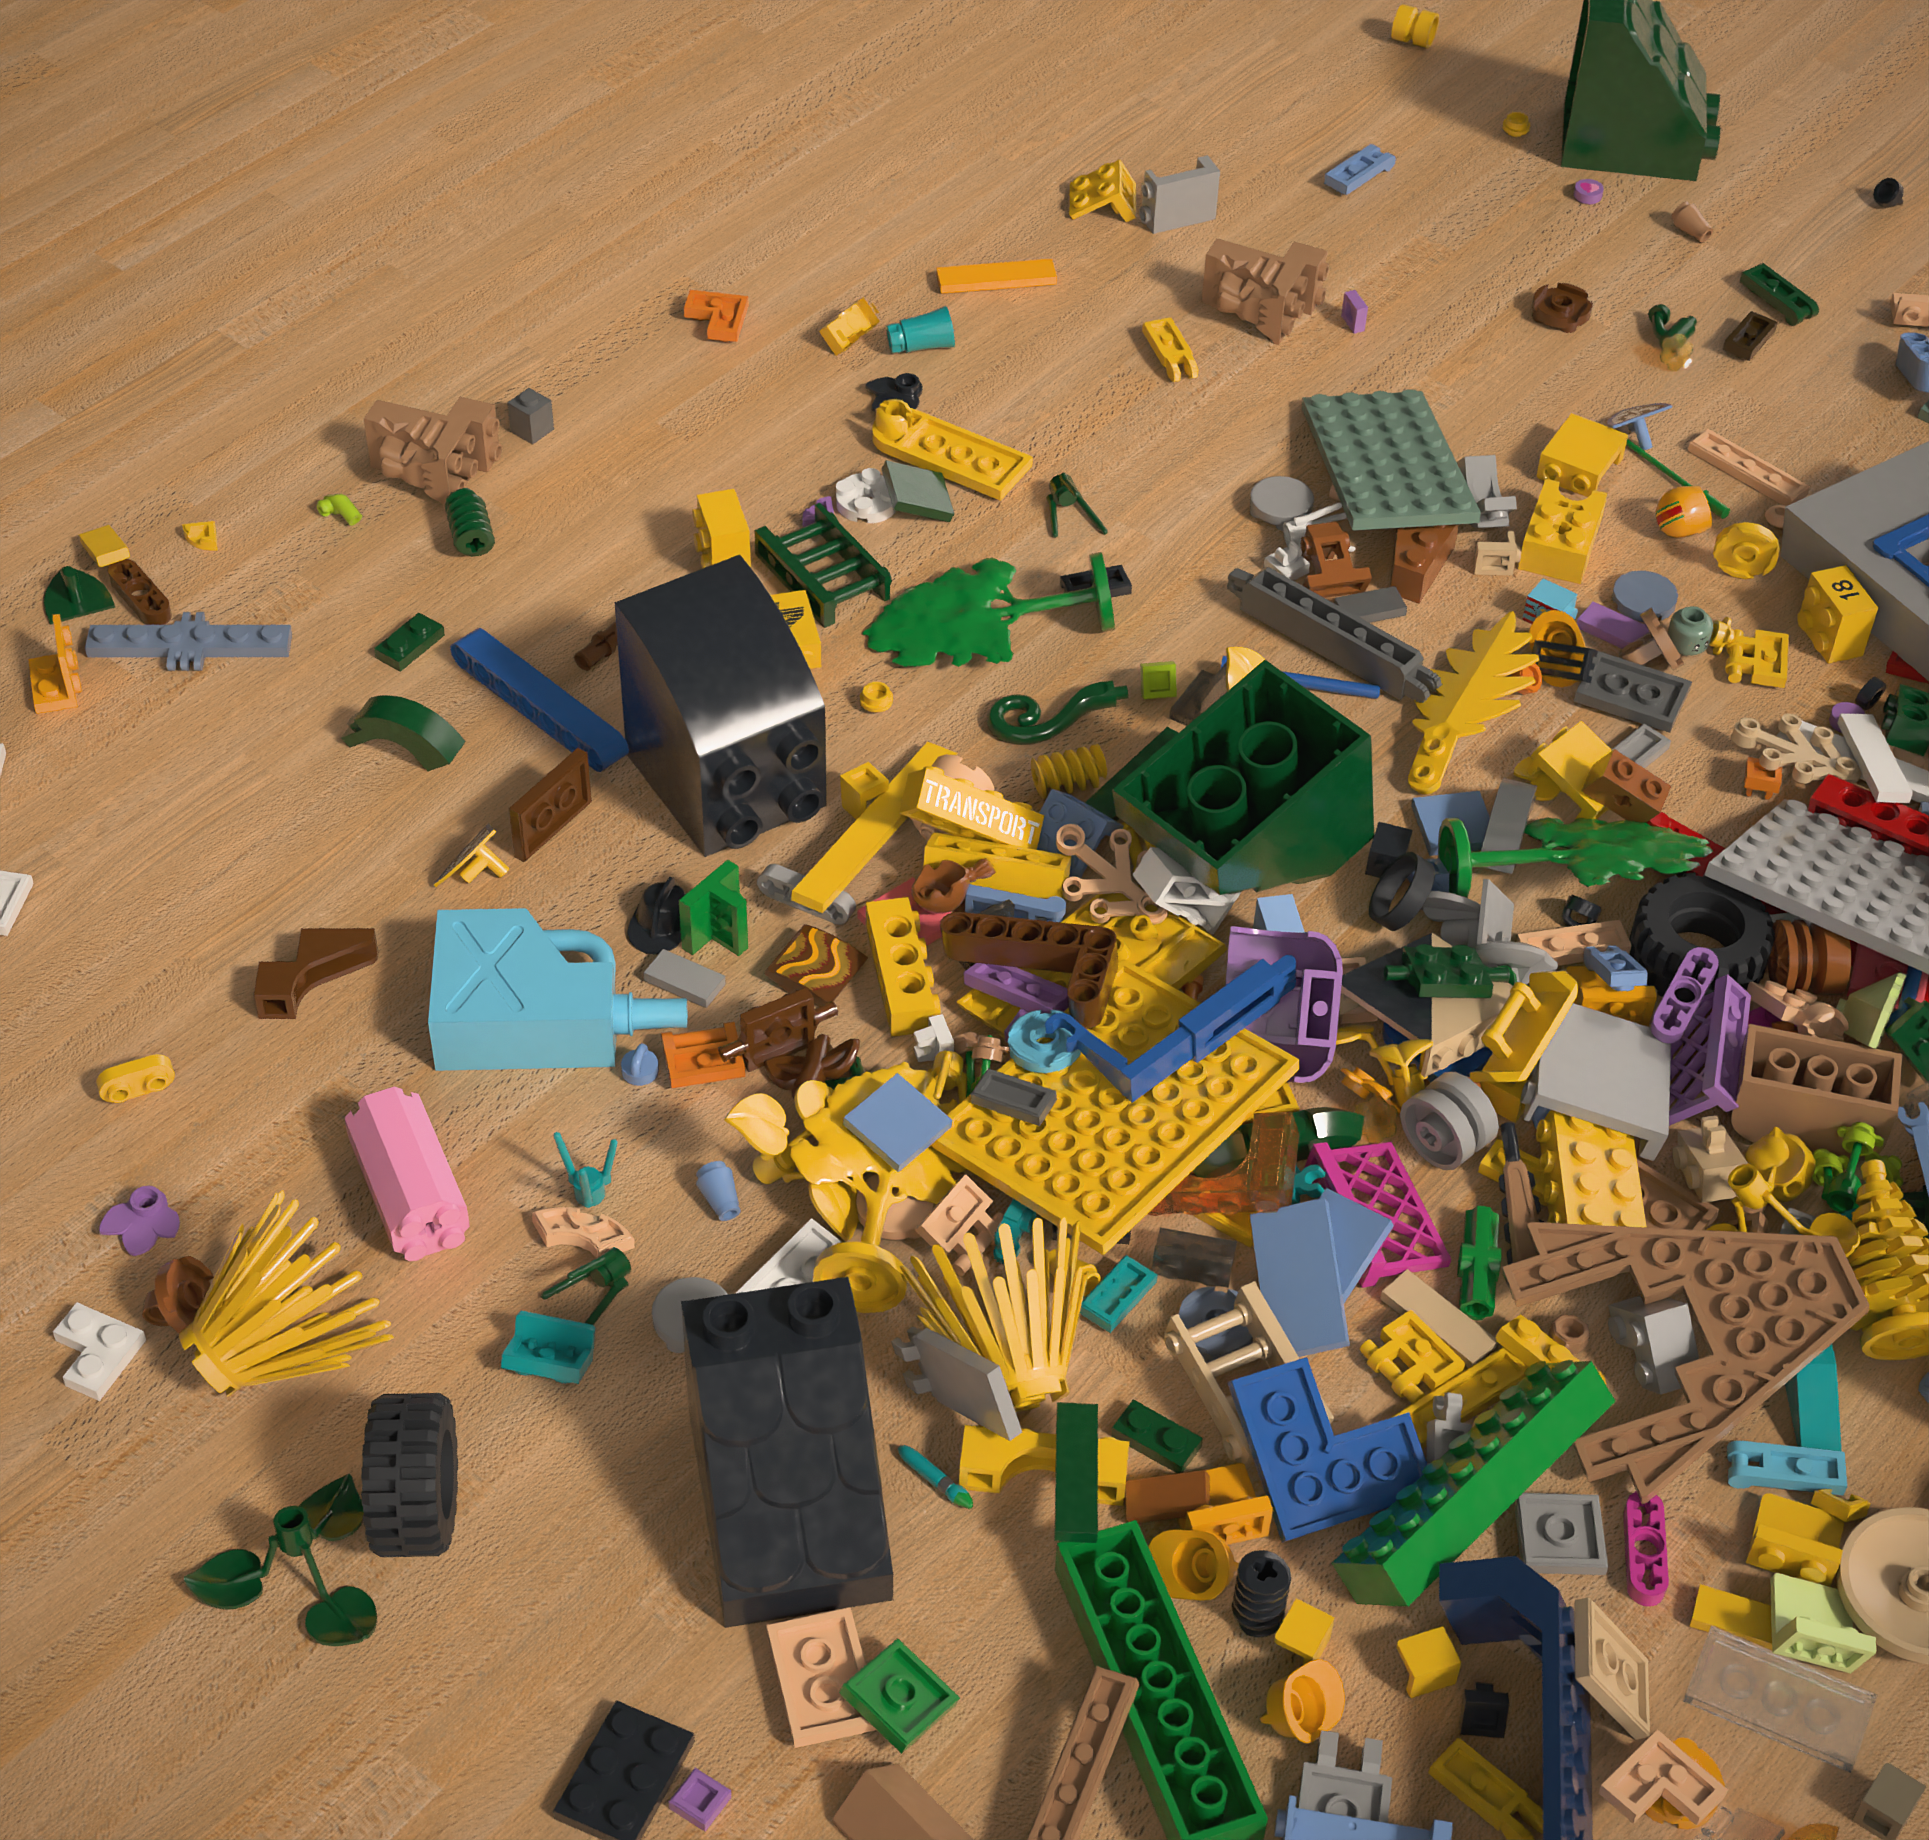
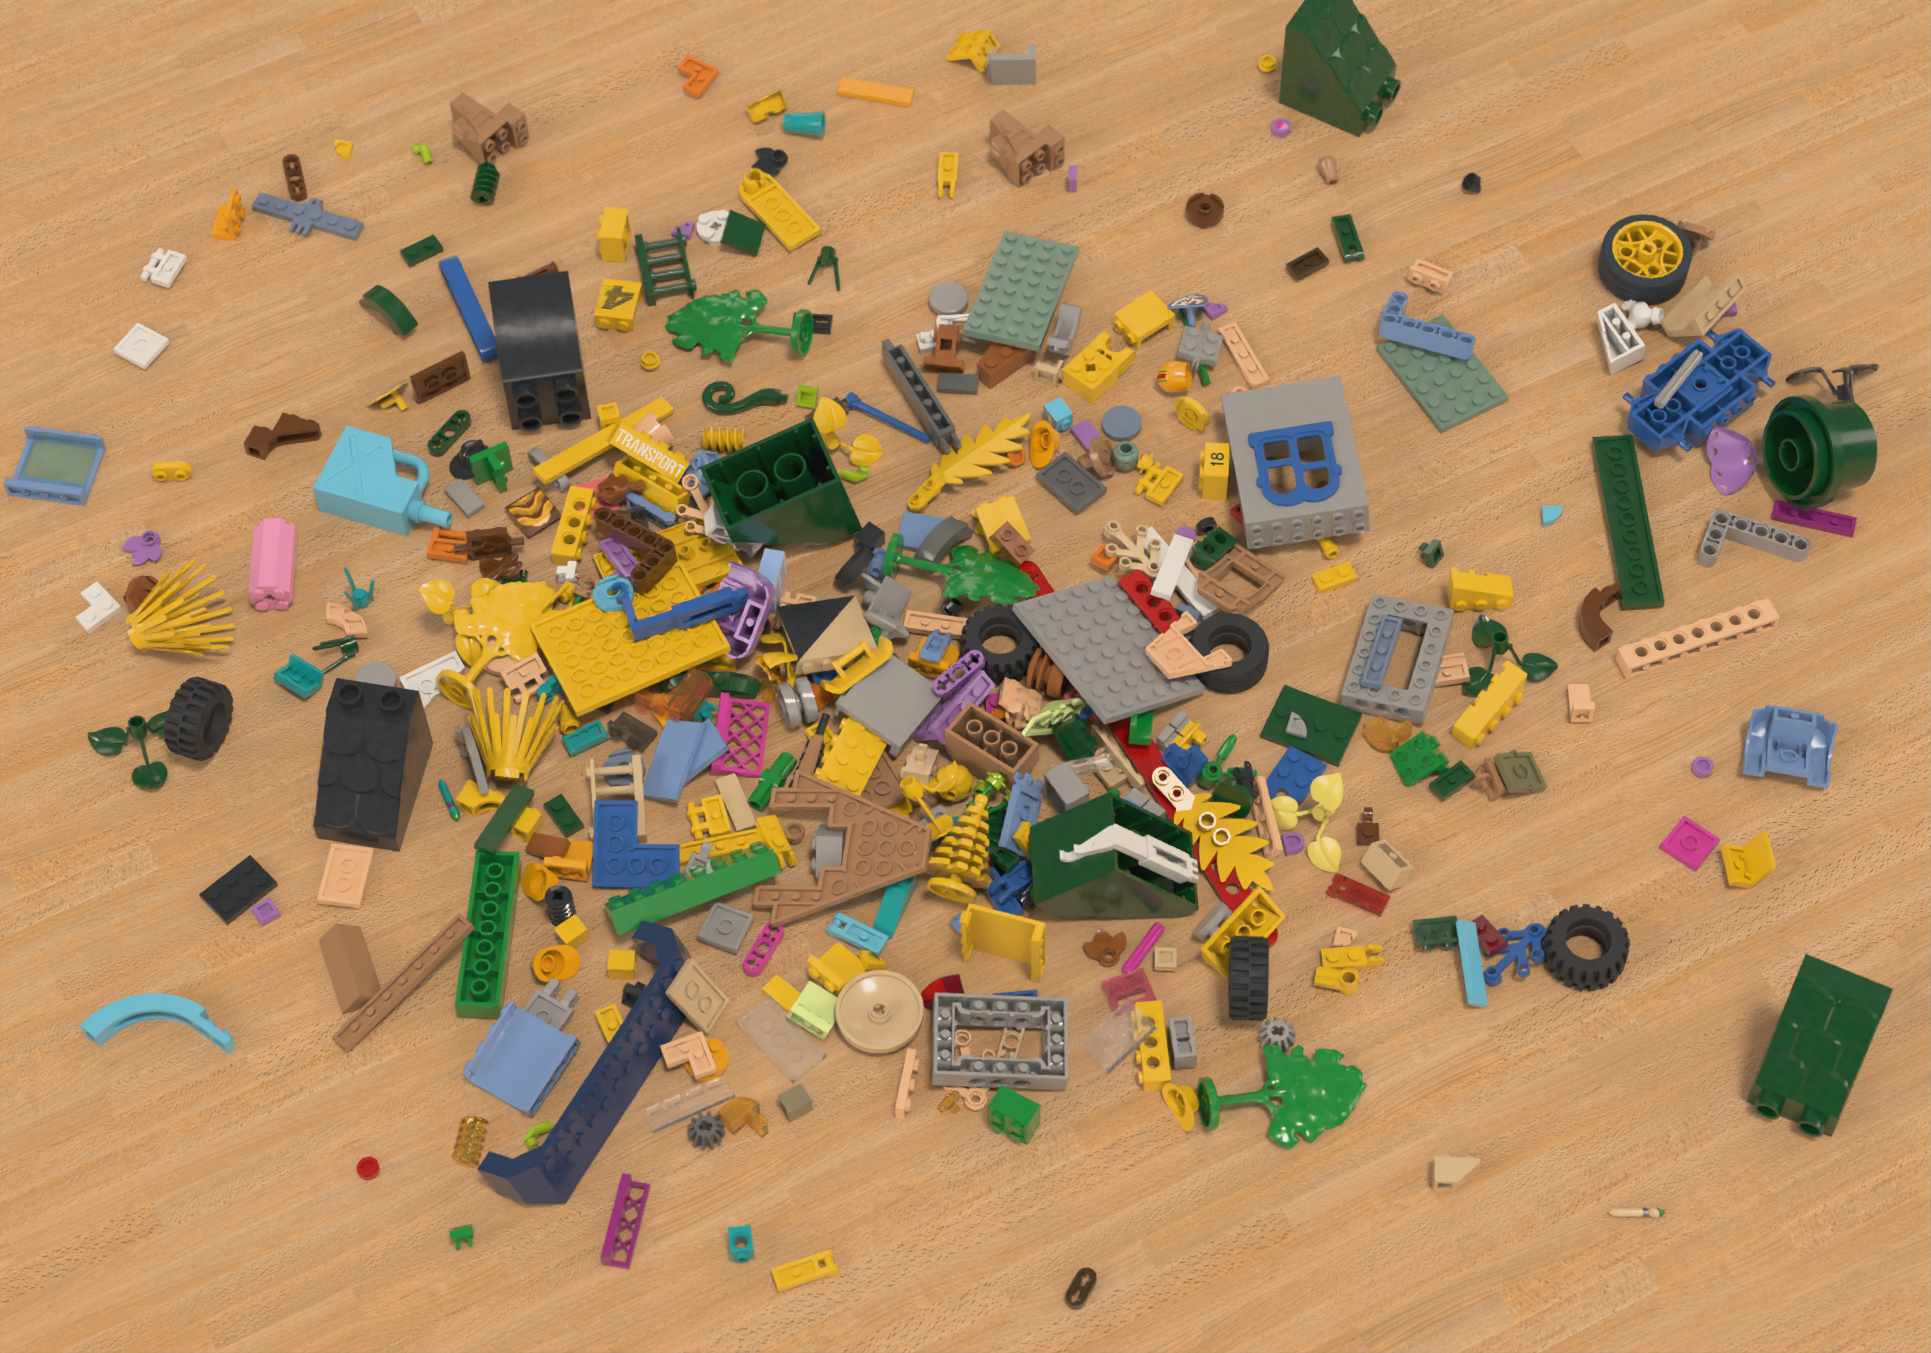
camera: 25 degrees right, 10 degrees up
(75, 595) = (262, 169): dark green shield -> none
(104, 546) = (287, 142): yellow tile -> none
(530, 416) = (553, 120): dark grey brick -> none
(606, 900) = (448, 441): none -> dark green beam
(639, 1066) = (417, 541): medium blue tile -> none
(719, 1189) = (421, 619): medium blue cone -> none
(897, 1122) = (515, 614): medium blue tile -> none
(899, 1695) = (373, 896): green tile -> none
(1013, 1097) = (580, 619): dark grey tile -> none
(1359, 169) = (1144, 72): medium blue plate -> none
(1446, 972) = (838, 621): dark green plate -> none
(1585, 665) = (1045, 458): black tile -> none
(1643, 745) = (1049, 521): light grey tile -> none
(1660, 316) = (1265, 249): dark green plant -> none
(1664, 424) = (1214, 310): none -> medium lavender tile
(1676, 352) = (1253, 267): clear yellow plant -> none
(1685, 466) = (1200, 346): none -> light grey plate

